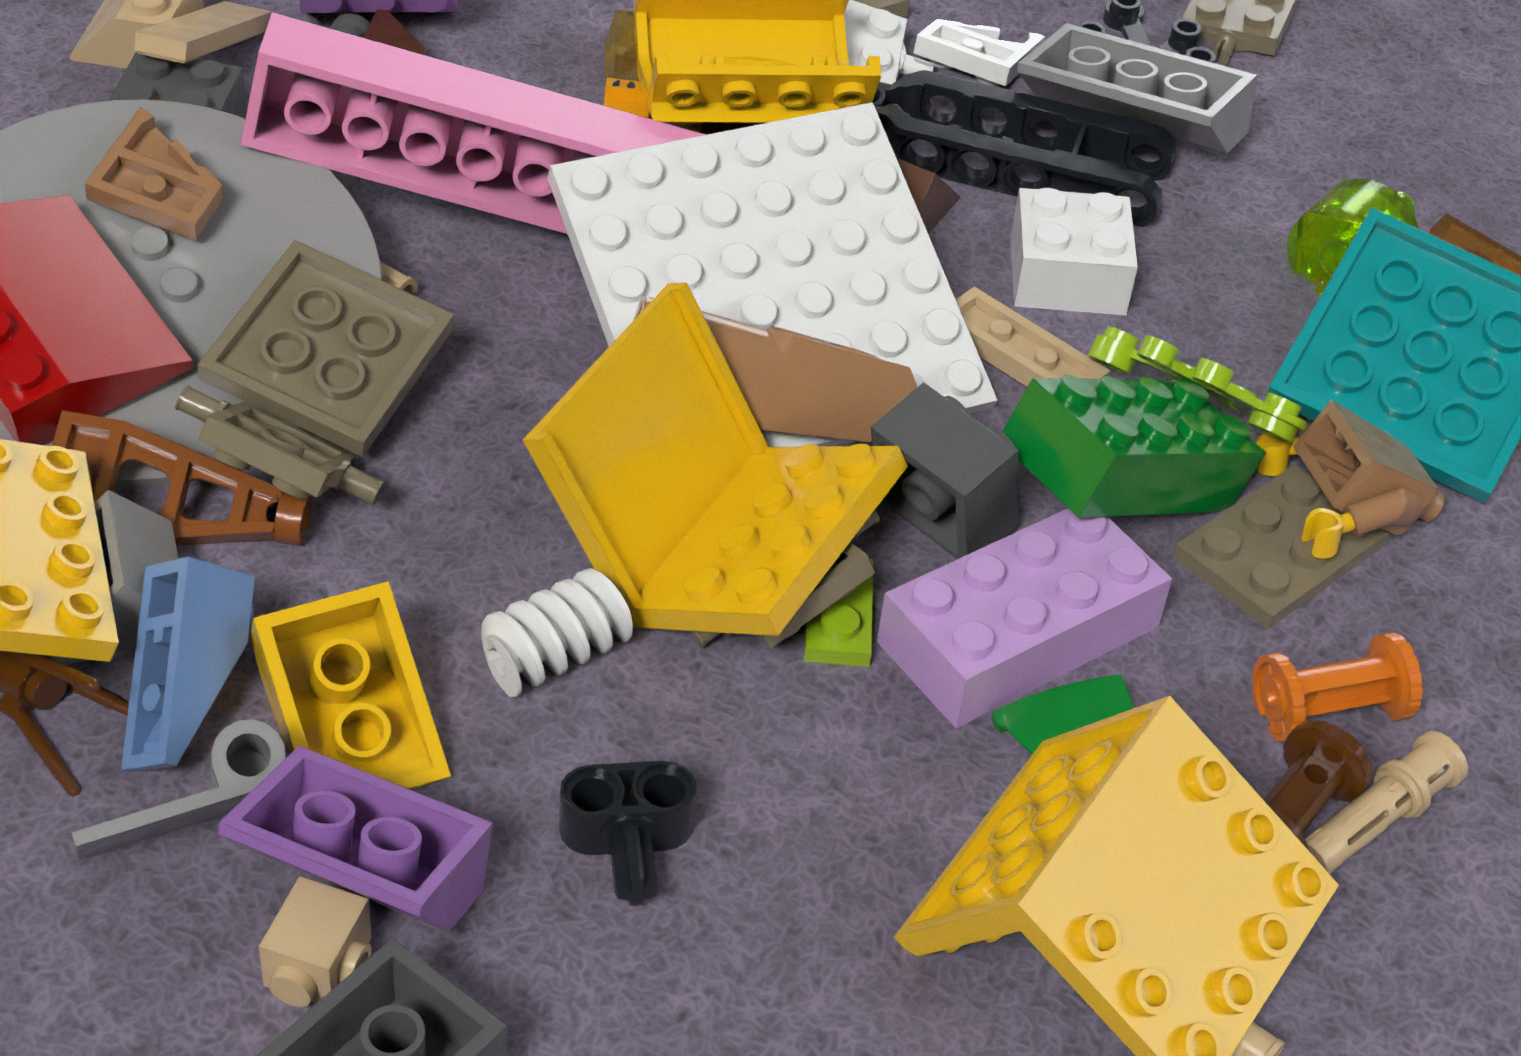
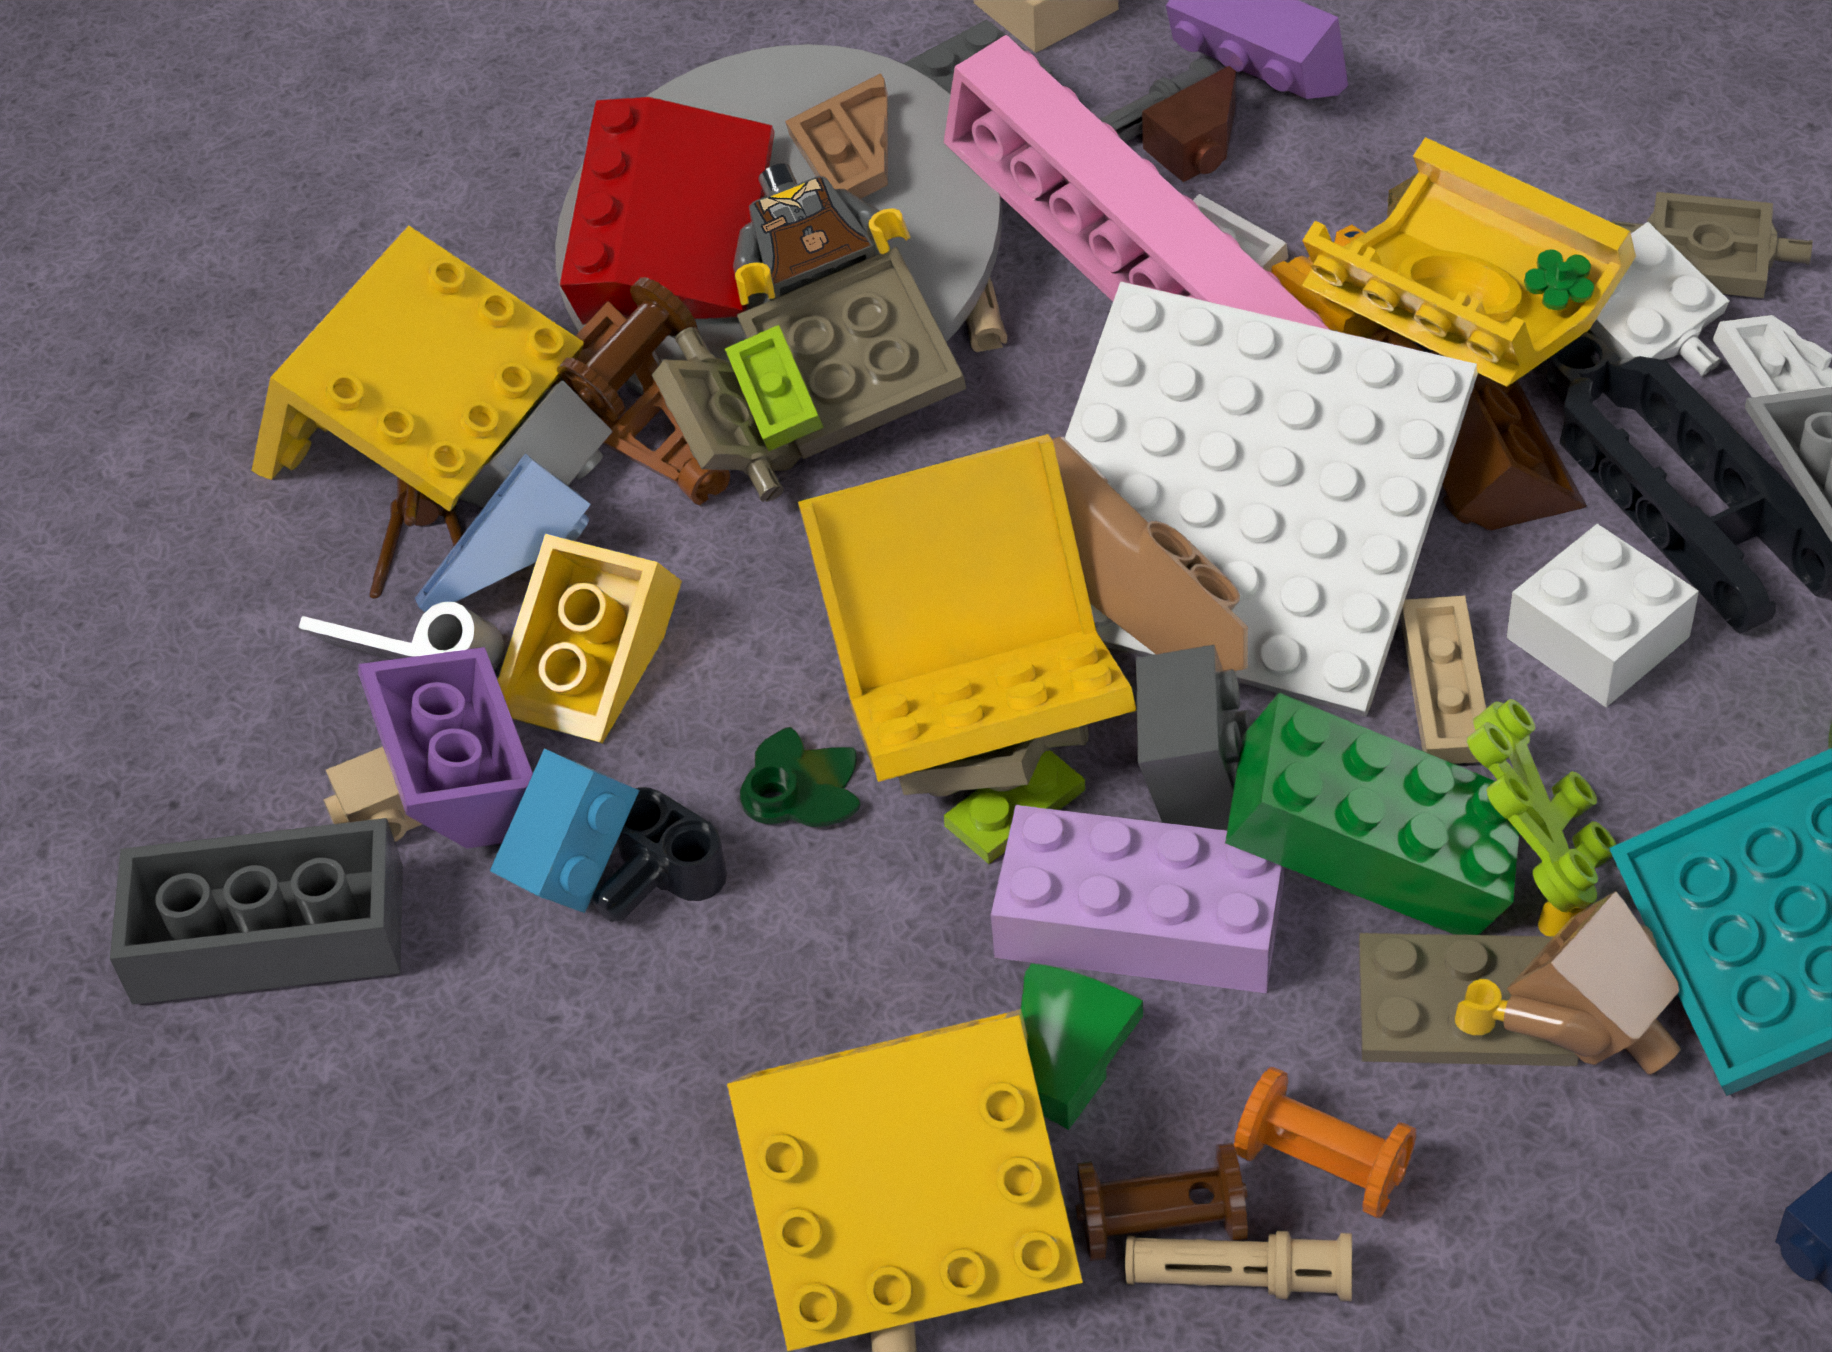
camera: 55 degrees right, 5 degrees up
(139, 389) = (656, 317): none -> reddish brown hose
(201, 32) = (1067, 23): tan tile -> none
(213, 261) = (806, 234): none -> torso
(307, 400) = (773, 388): none -> lime plate
(551, 624) = (768, 680): white piece -> none
(554, 844) = (564, 831): none -> dark azure brick
(662, 692) = (808, 779): none -> dark green plate
(812, 40) = (1560, 279): none -> green plant

